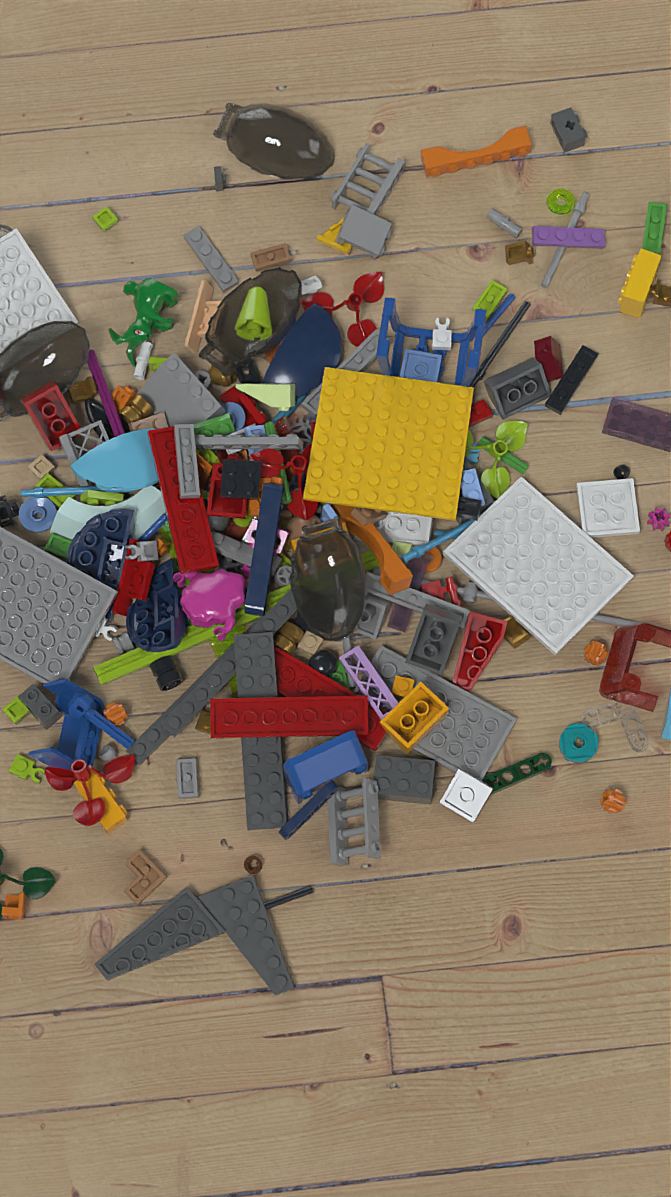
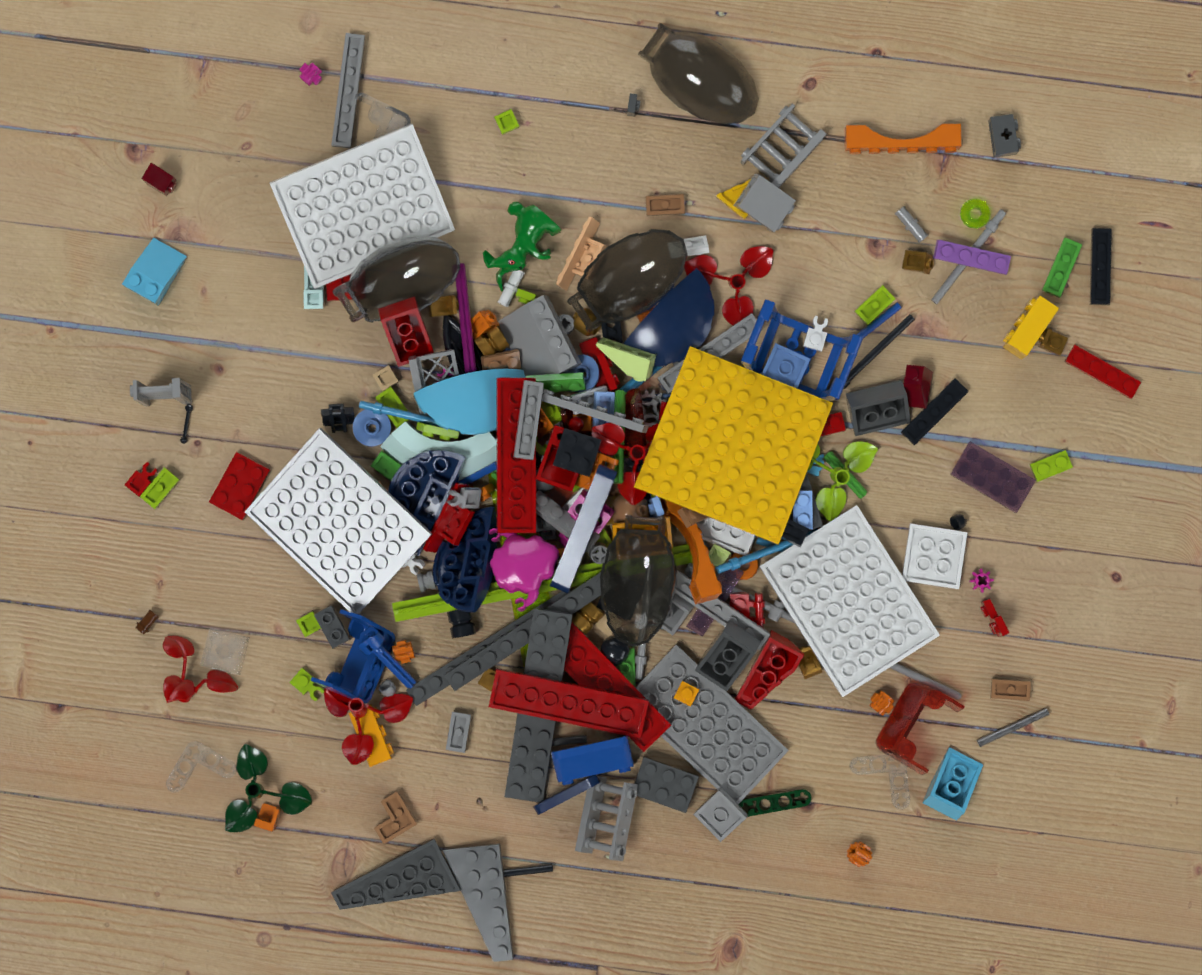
camera: 15 degrees right, 15 degrees up
(211, 259) = (604, 191): light grey plate -> none
(250, 859) = (503, 836): reddish brown bush -> none
(254, 316) = (632, 274): lime cone -> none
(365, 666) = (662, 684): lavender fence -> none
(414, 717) = (689, 730): light orange slope -> none
(575, 754) = (850, 781): teal plate -> none

